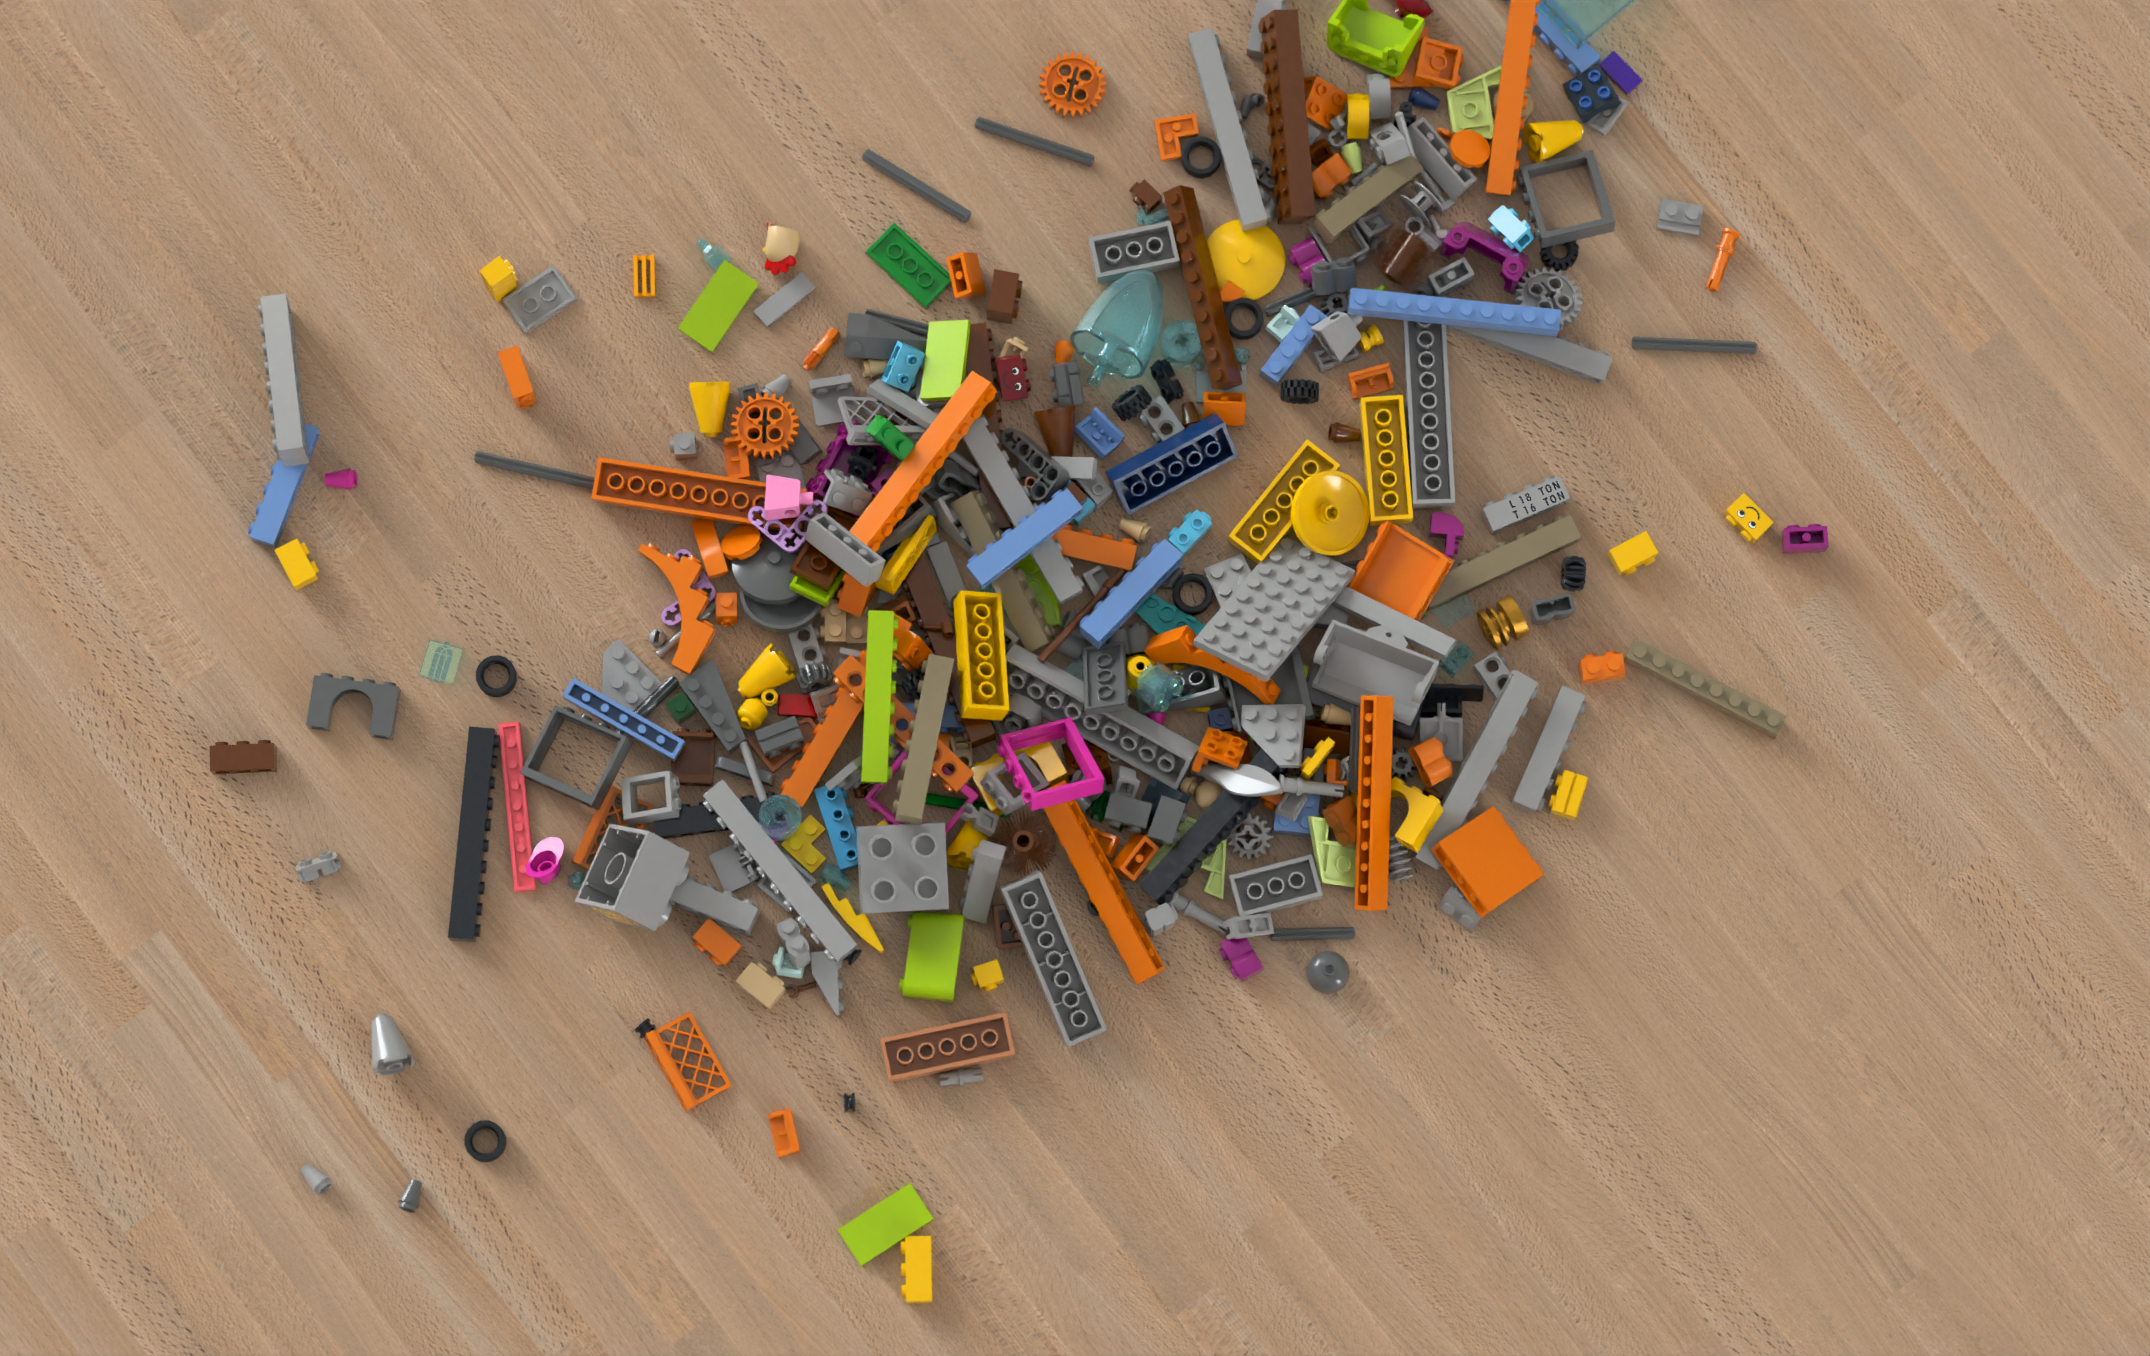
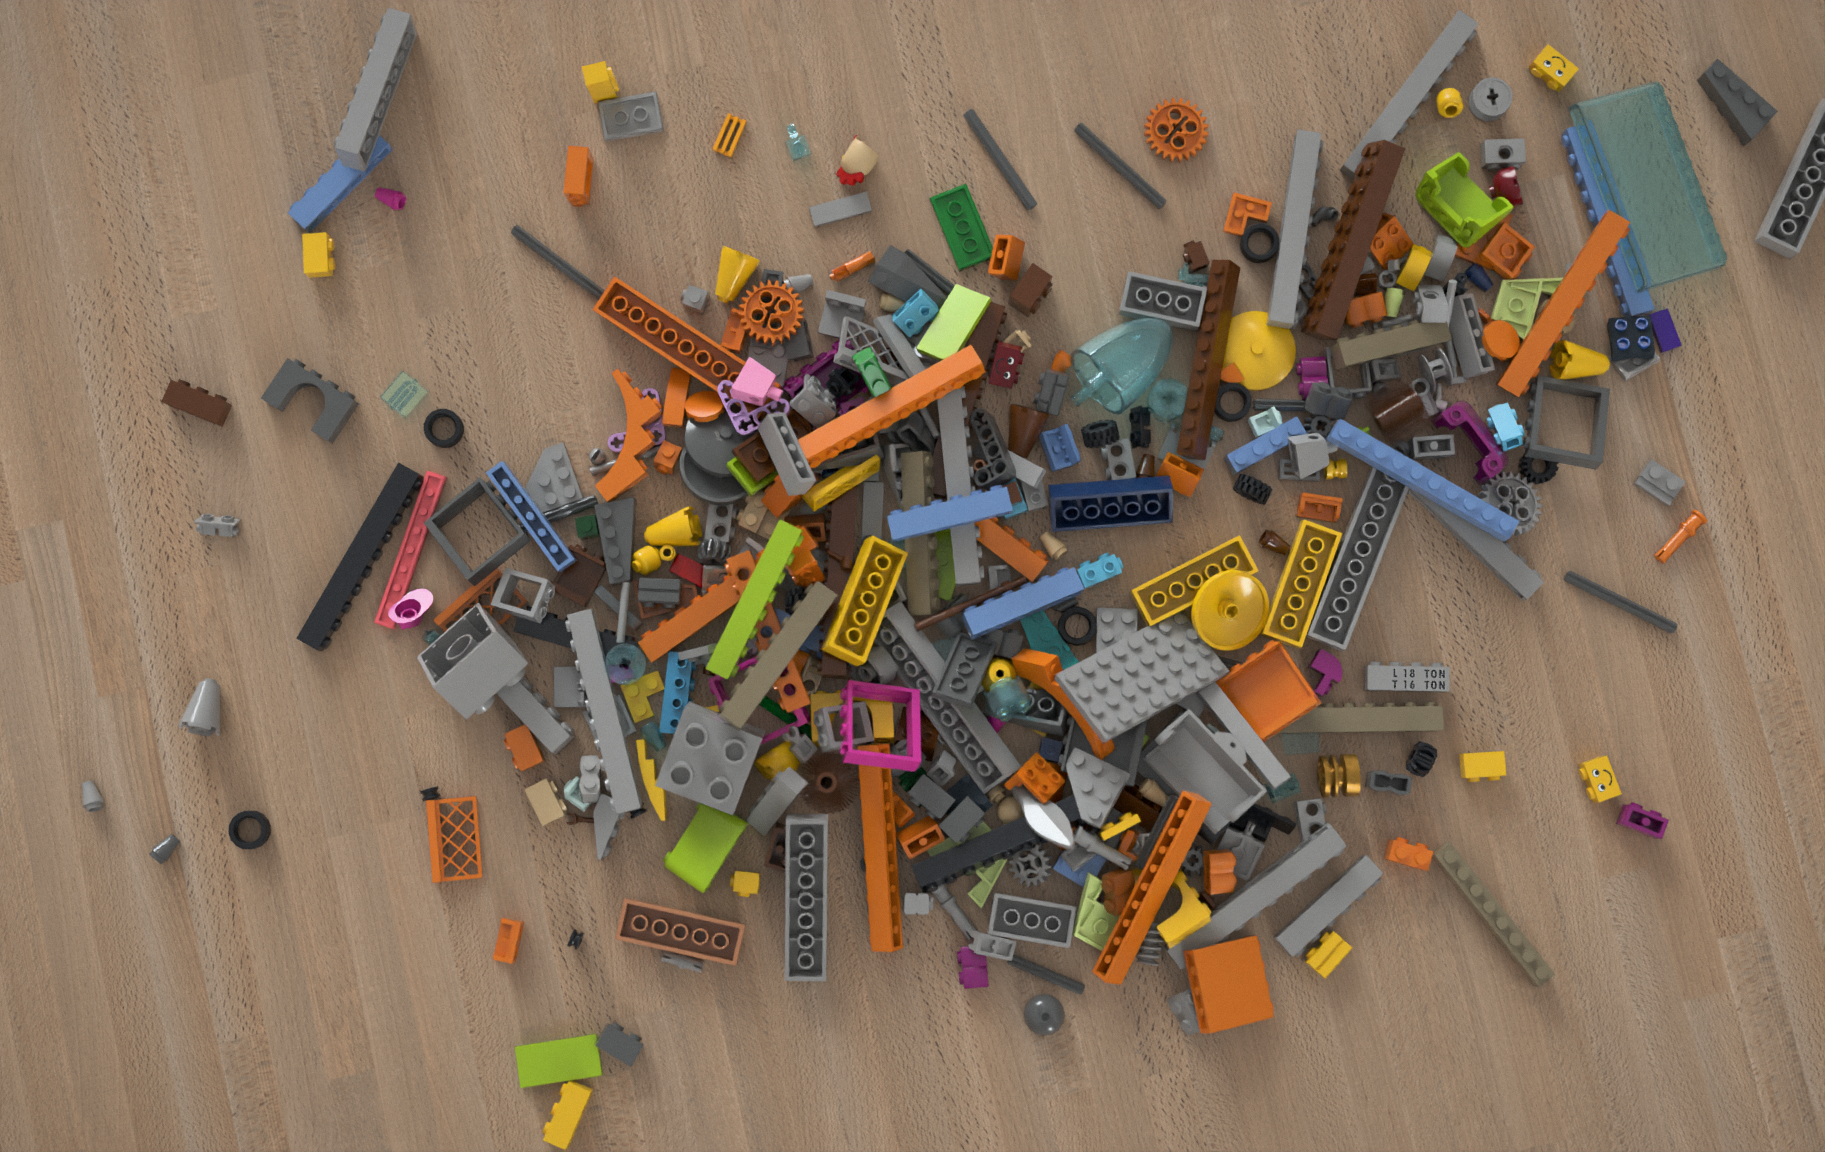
camera: 30 degrees right, 5 degrees up
(718, 306) = (780, 189): lime tile -> none
(937, 1180) = (619, 1044): none -> dark grey brick

